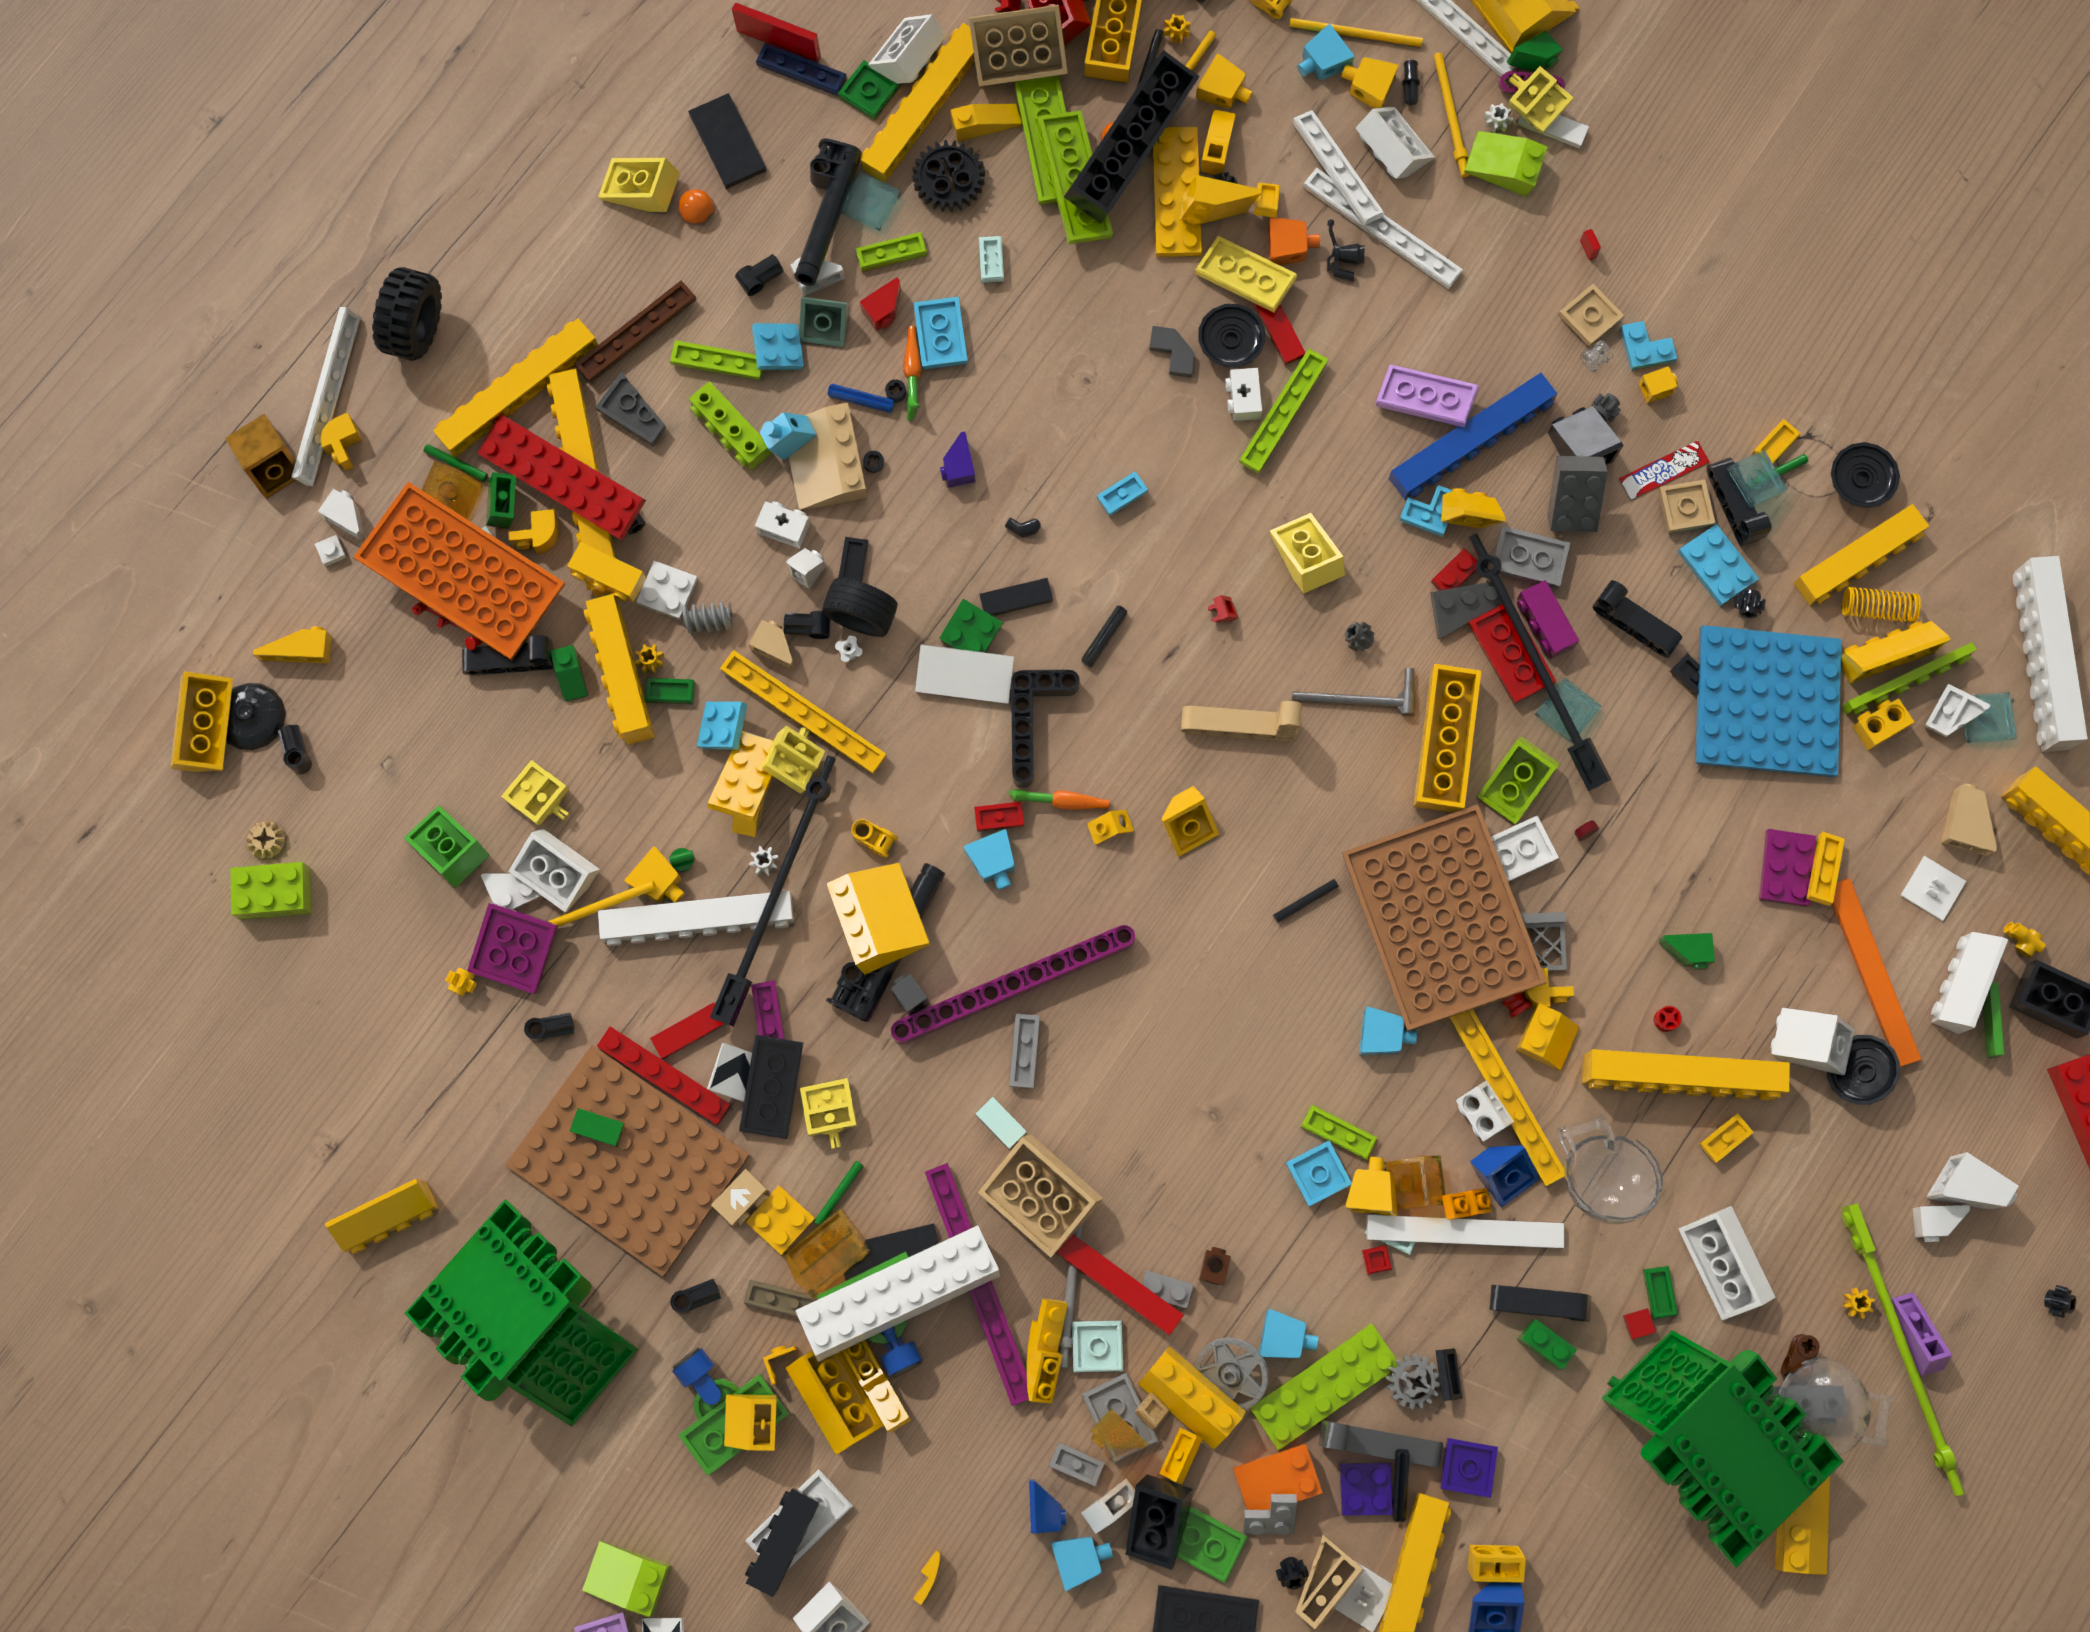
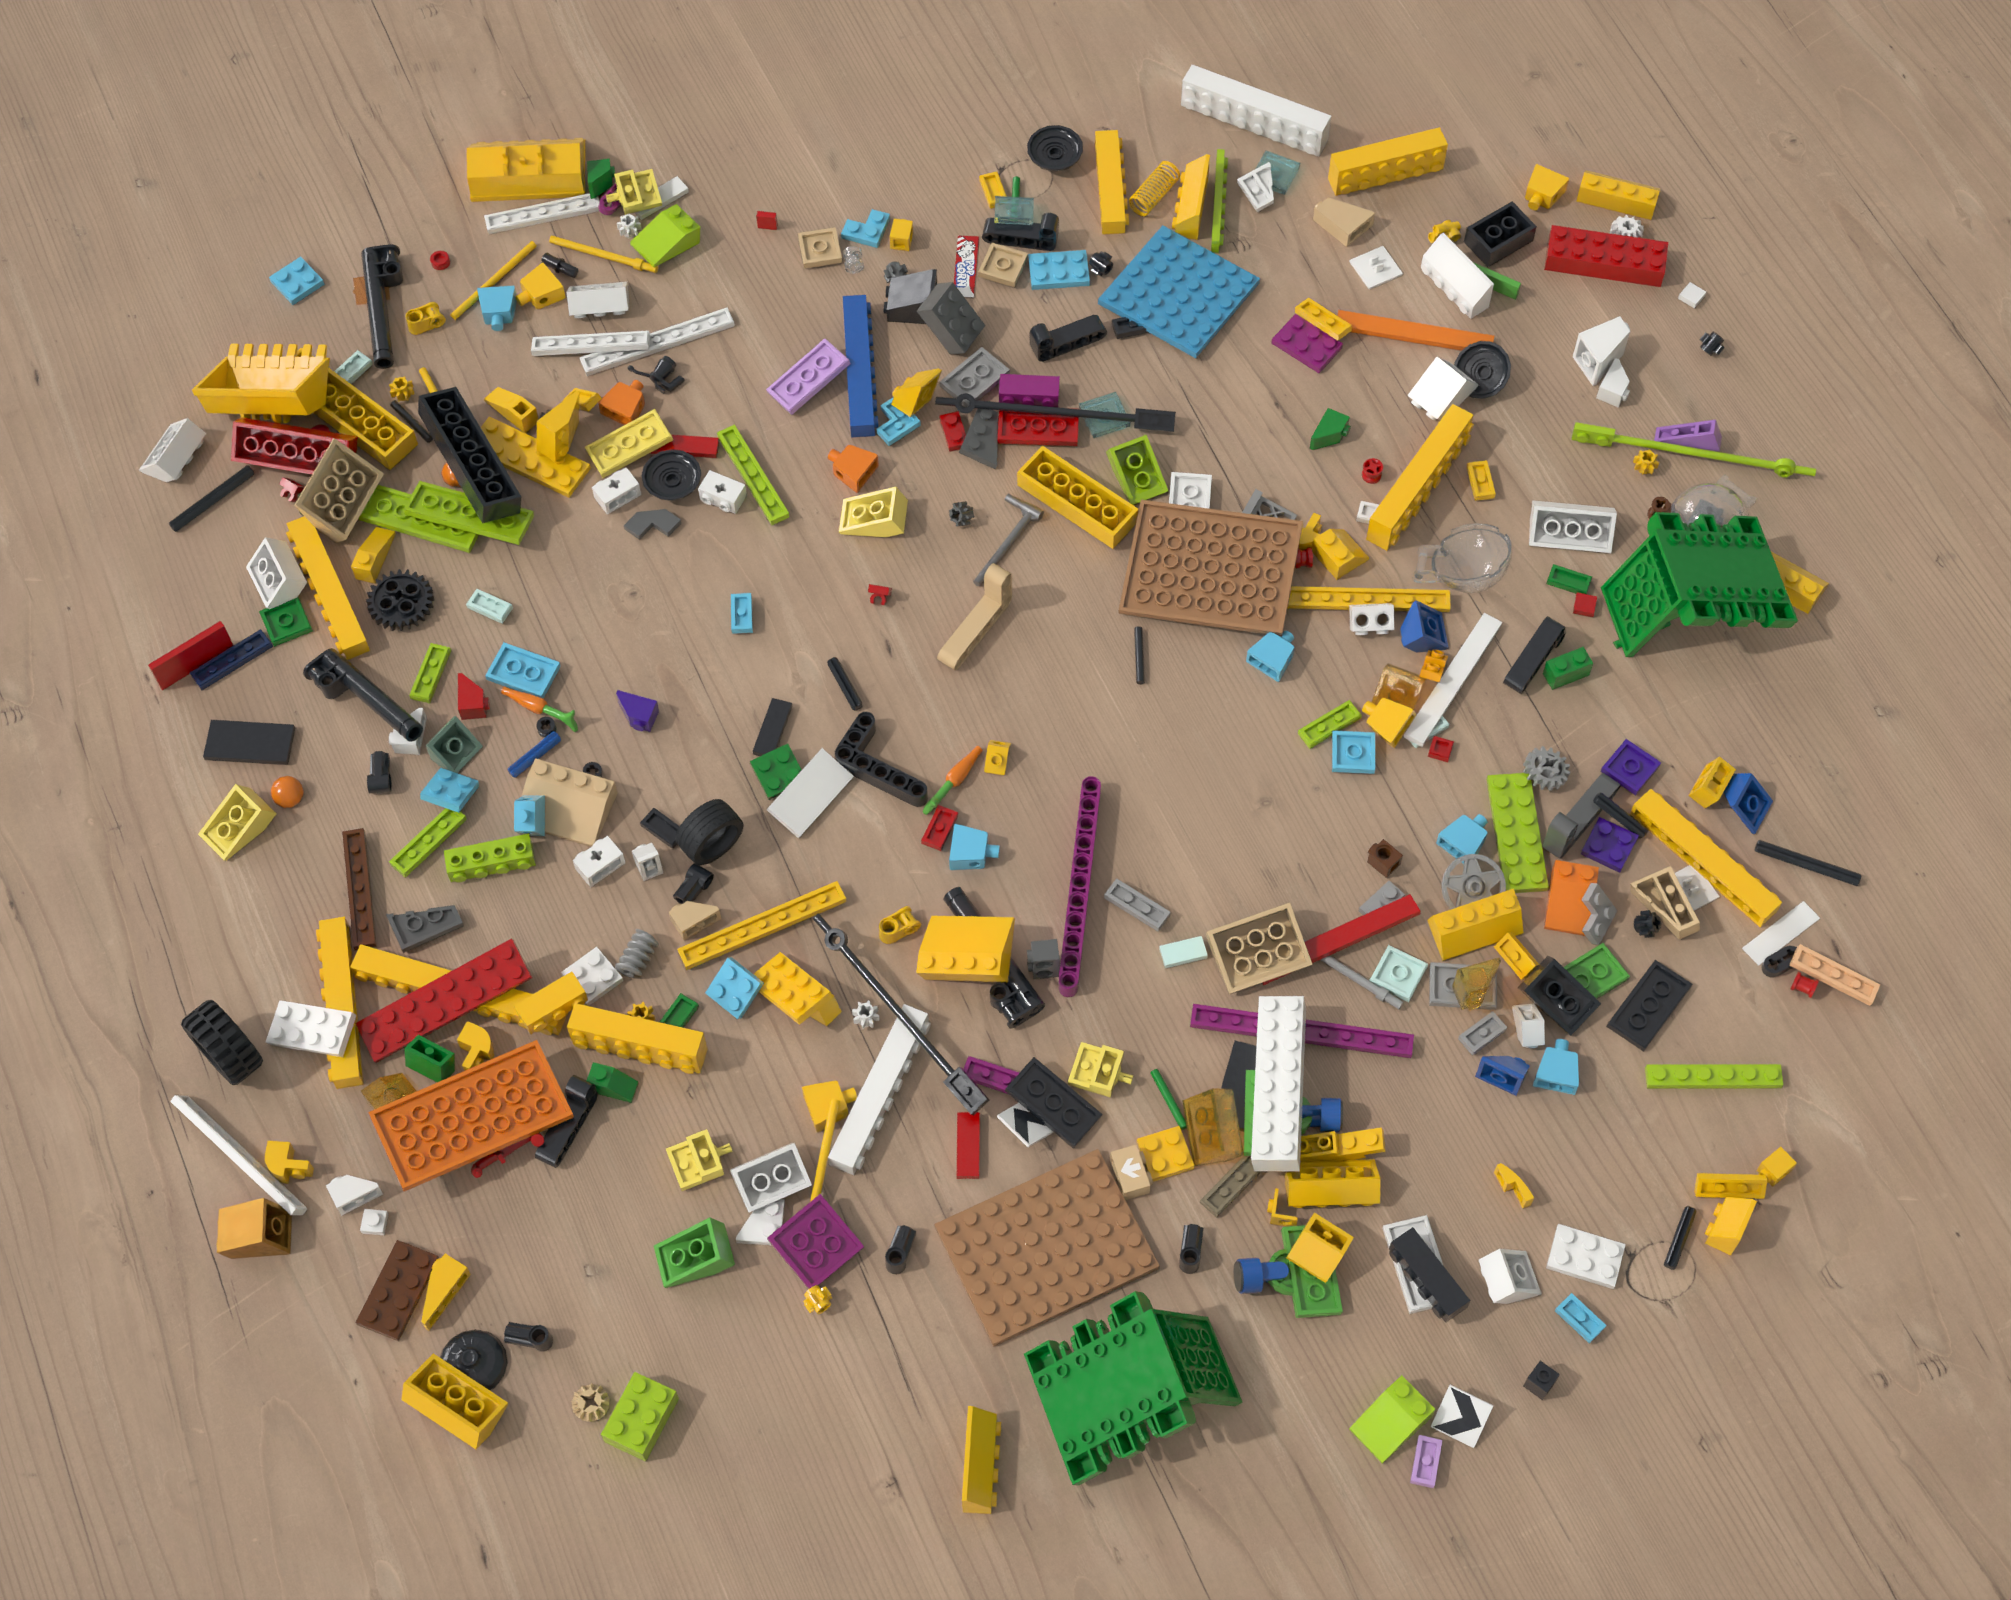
camera: 60 degrees left, 15 degrees down
(279, 610) = (397, 1290): none -> reddish brown plate
(472, 379) = (311, 1028): none -> white plate
(480, 475) = (357, 1090): green bar -> none
(597, 1127) = (1007, 1250): green tile -> none
(663, 1075) = (994, 1182): red plate -> none
(682, 859) = (823, 1074): green plate -> none
(793, 758) = (798, 946): light yellow plate -> none
(846, 655) = (734, 872): white plate -> none
(870, 201) = (379, 664): clear light blue tile -> none
(1023, 529) = (722, 694): black arm -> none
(1043, 1353) = (1388, 1014): yellow slope -> none
(1152, 1411) = (1469, 957): tan tile -> none
(1188, 821) = (1029, 696): yellow slope -> none
(1192, 304) = (616, 490): none -> white brick
(1223, 84) = (470, 380): yellow torso -> none
(1352, 500) = (853, 466): none -> orange torso
(1449, 1374) = (1554, 743): black tile -> none
(1586, 830) = (1202, 450): dark red tile -> none
(1615, 1039) = (1365, 511): none -> white tile
(1884, 726) = (1240, 232): yellow brick -> none

